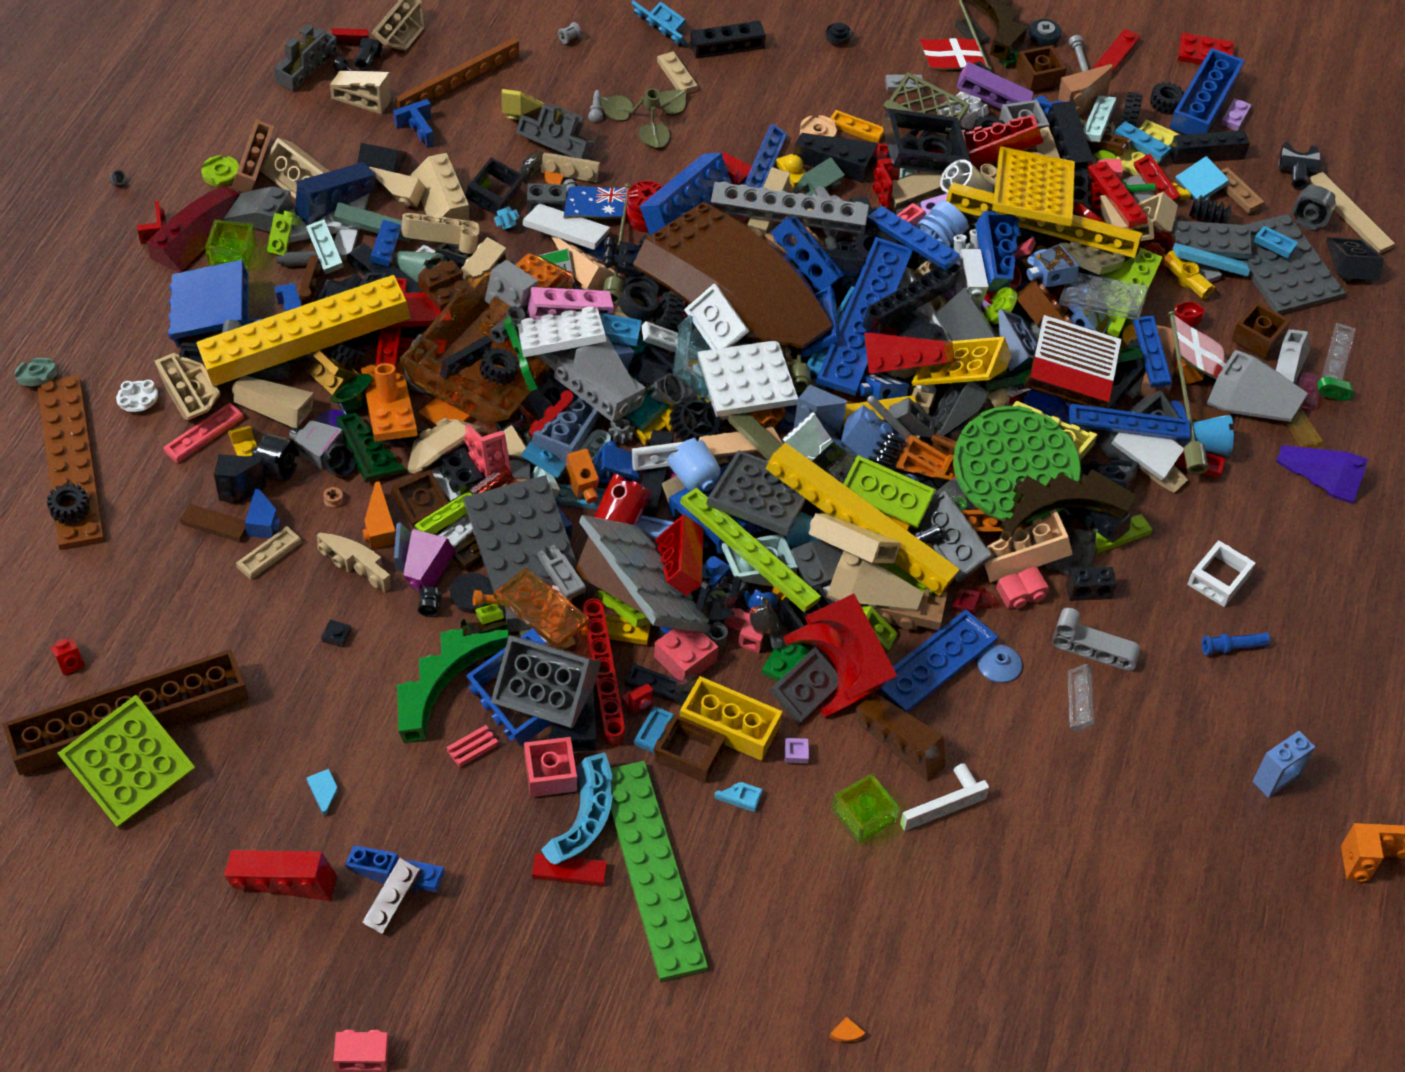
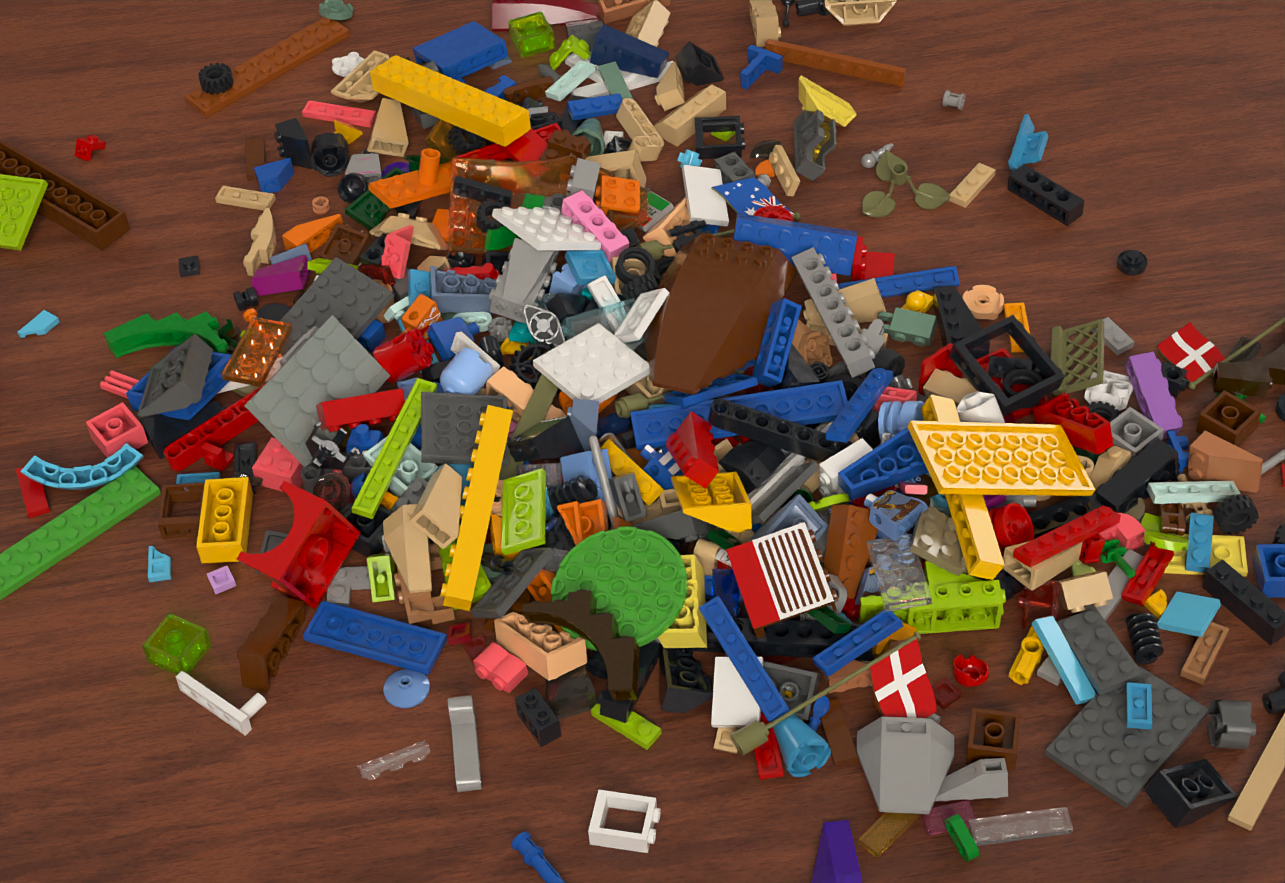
camera: 70 degrees right, 5 degrees down
(1136, 154) = (1166, 541): none -> lime tile

